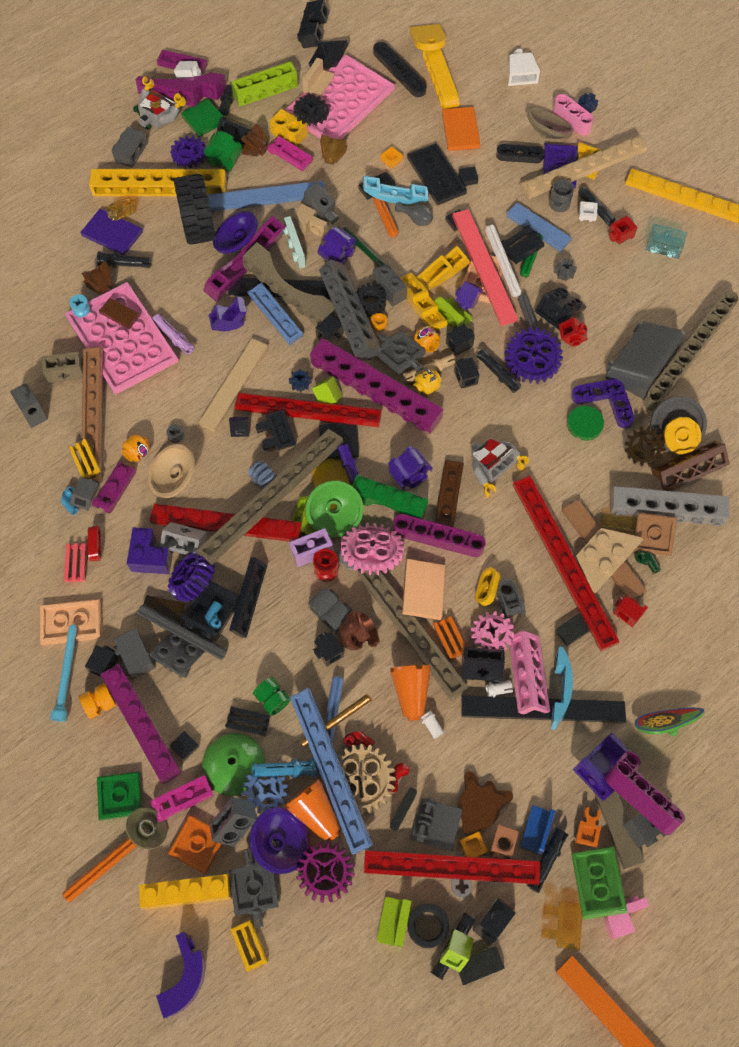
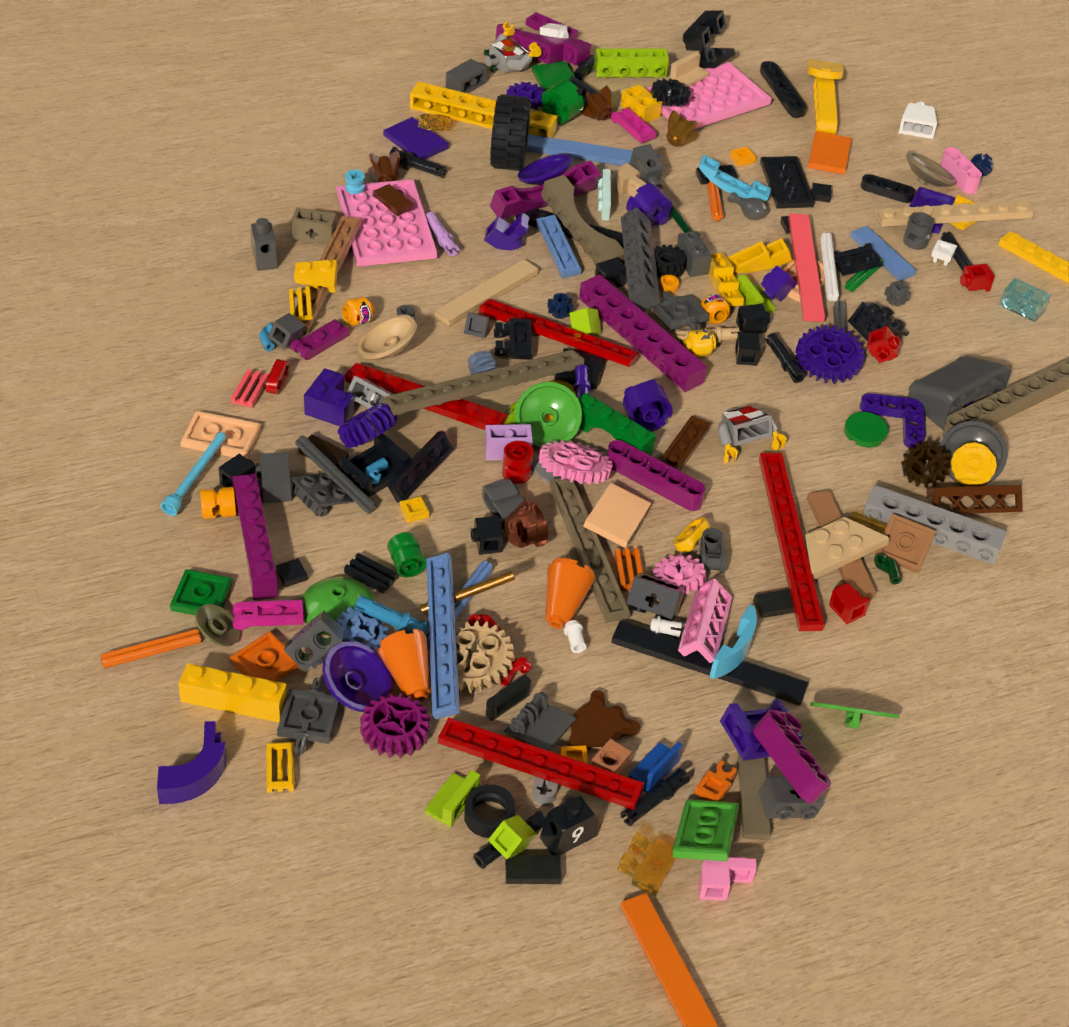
camera: 15 degrees right, 20 degrees down
(87, 422) = (317, 274): none -> yellow wing
(258, 641) = (414, 509): none -> yellow tile

